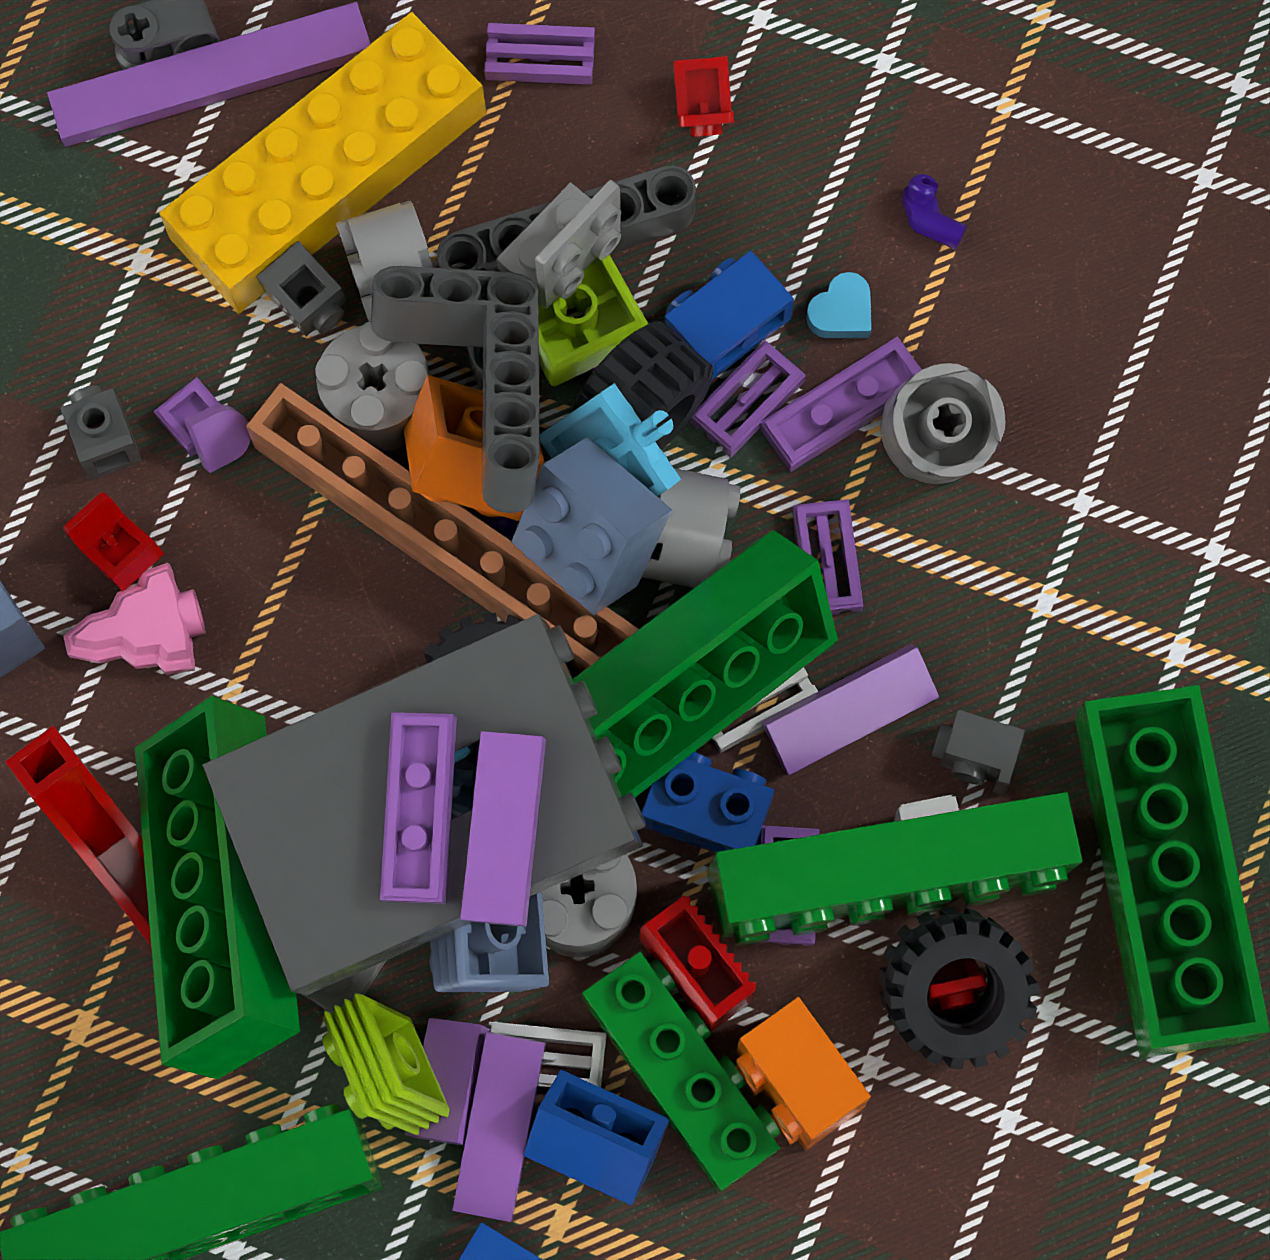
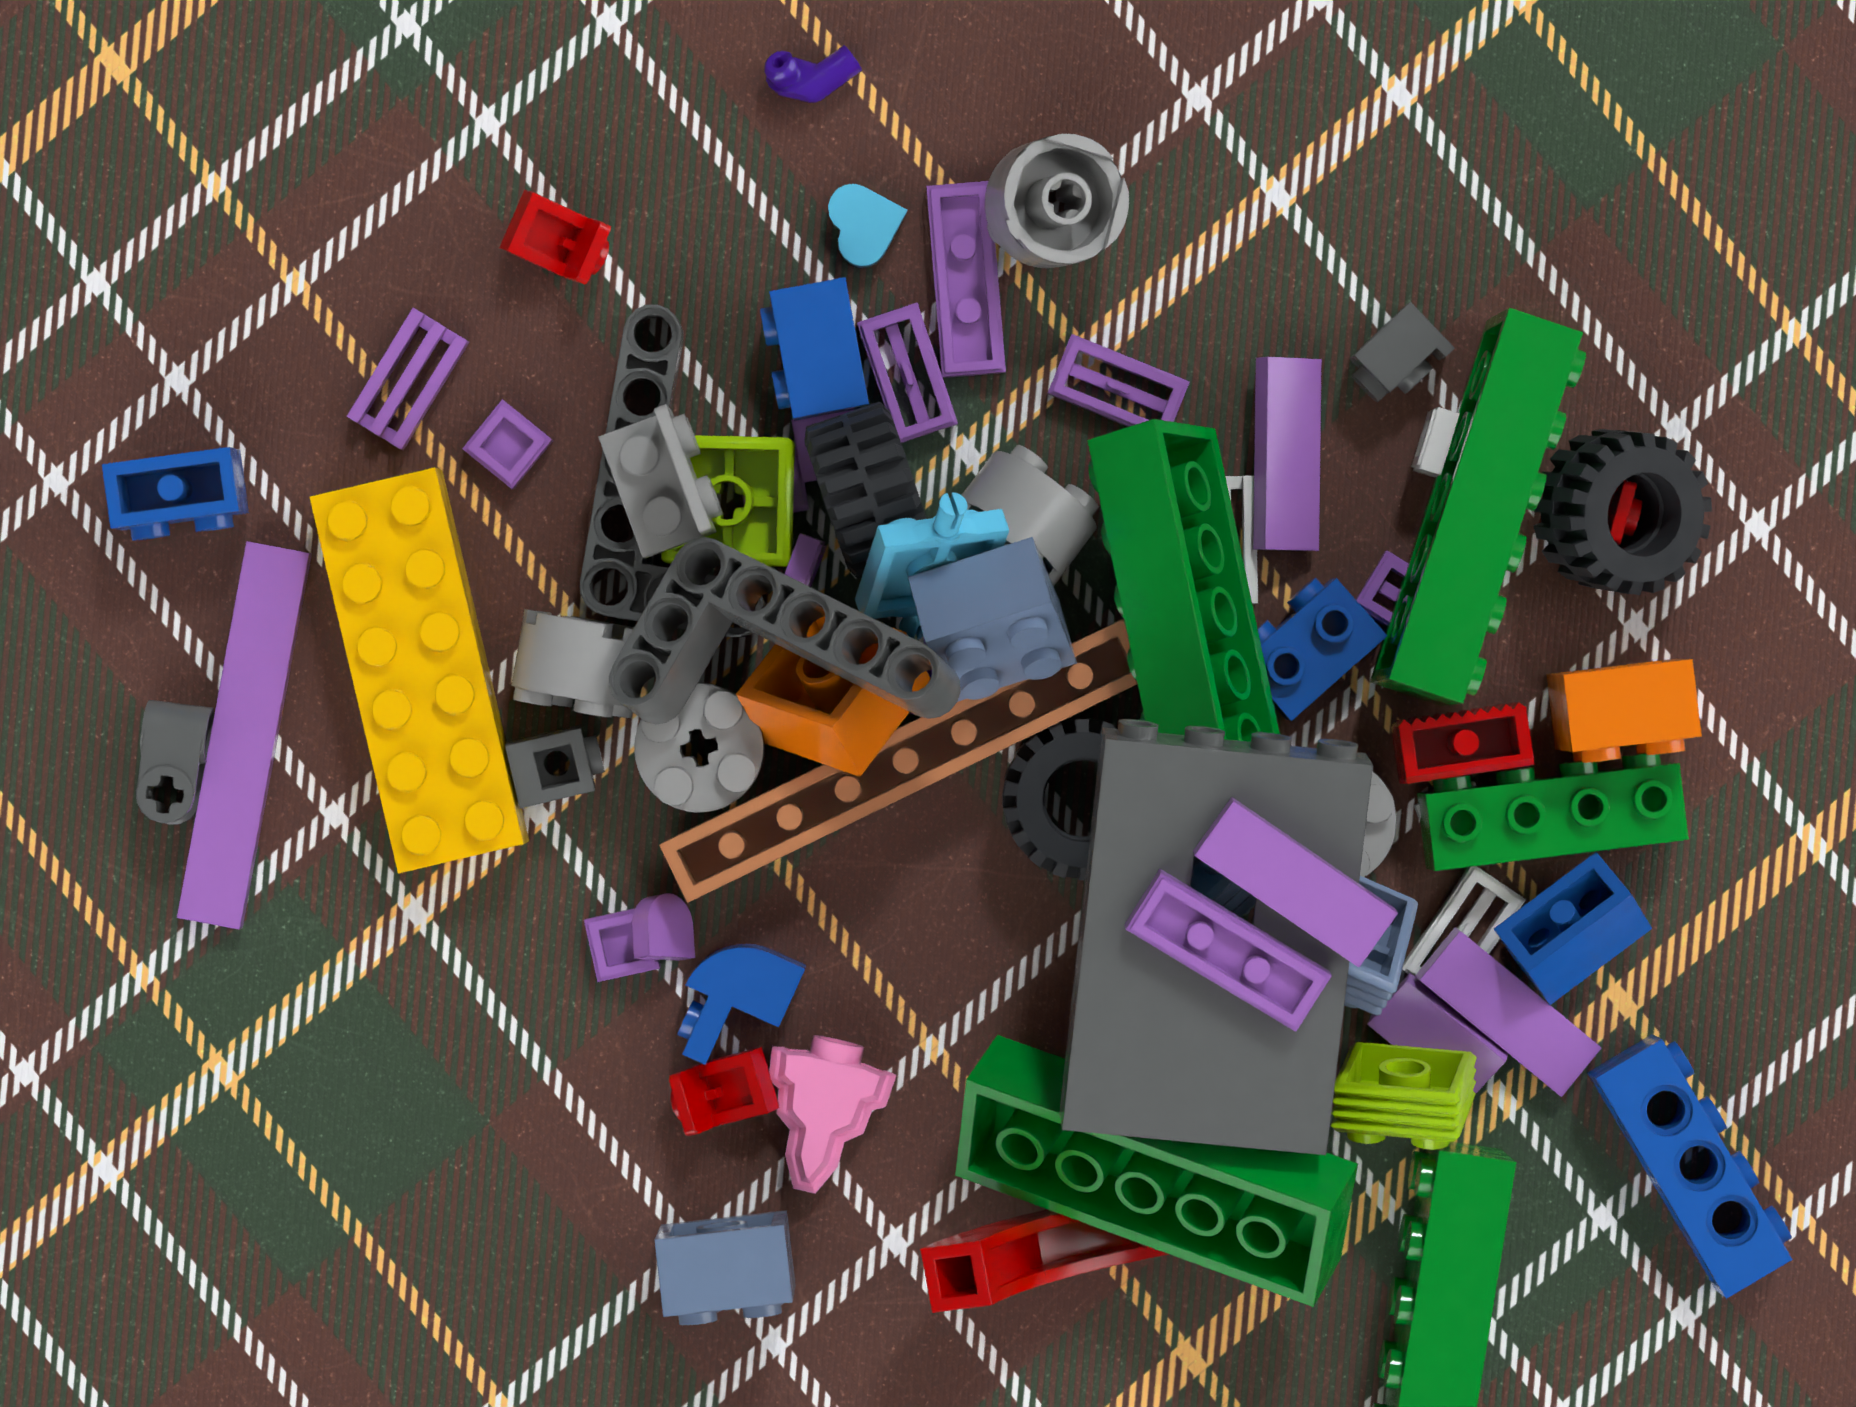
camera: 65 degrees left, 15 degrees up
(108, 446) = (616, 1042): dark grey brick -> none
(205, 506) = (741, 978): none -> blue brick
(530, 146) = (507, 444): none -> medium lavender tile
(559, 391) = (806, 559): none -> medium lavender tile
(1171, 872) = (1620, 241): green brick -> none

